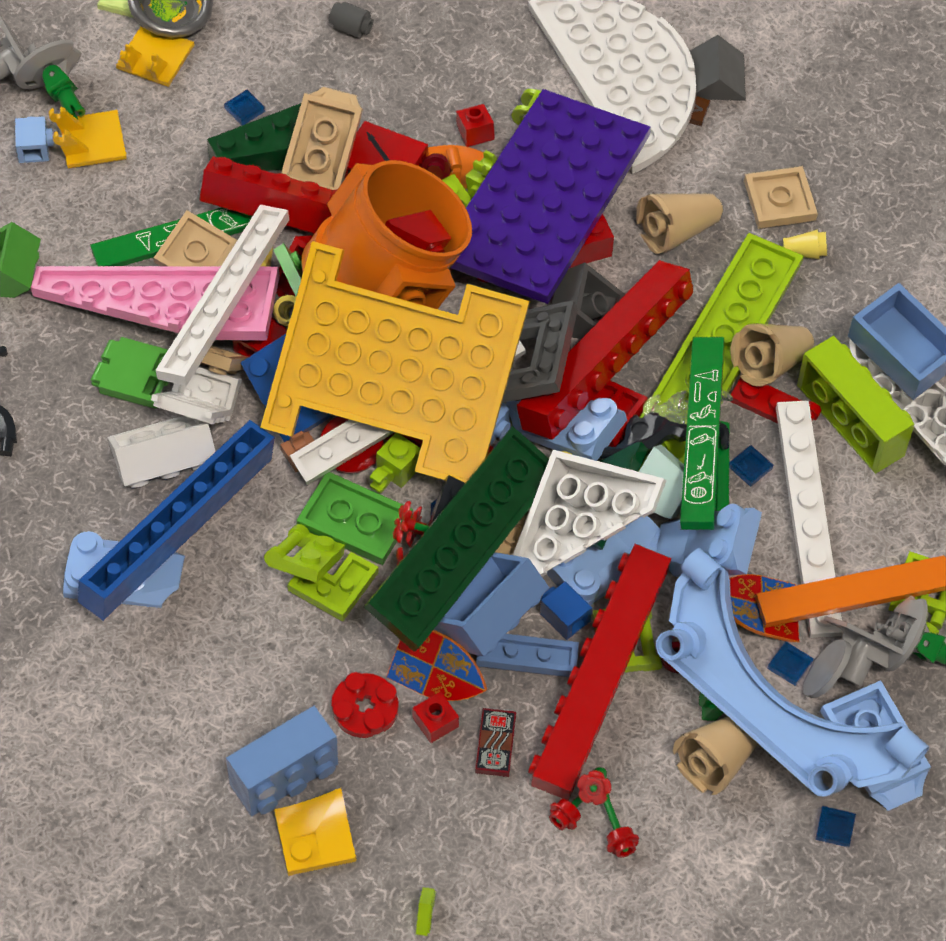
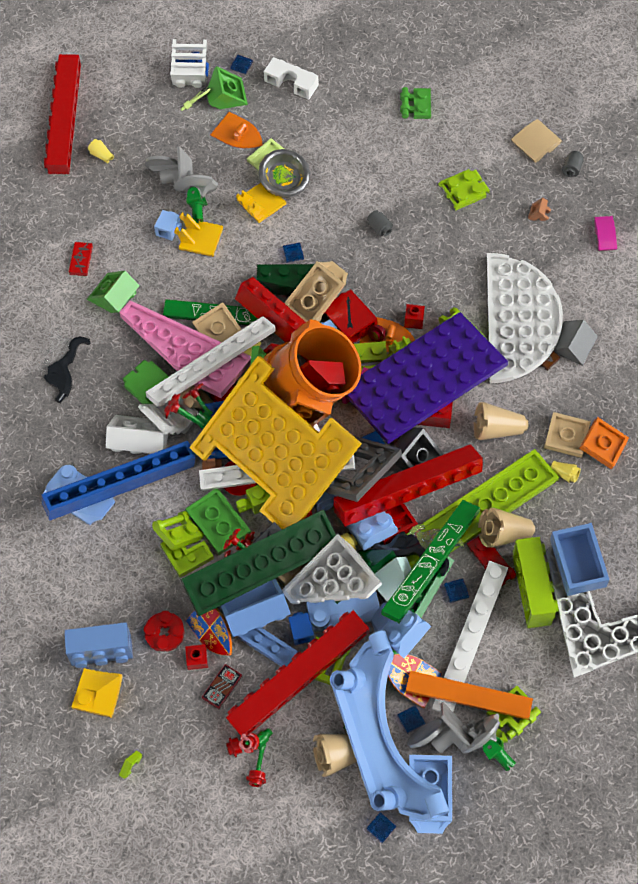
camera: 30 degrees right, 5 degrees up
(253, 381) = (201, 418): none -> plant
(836, 187) = (604, 443): none -> orange tile

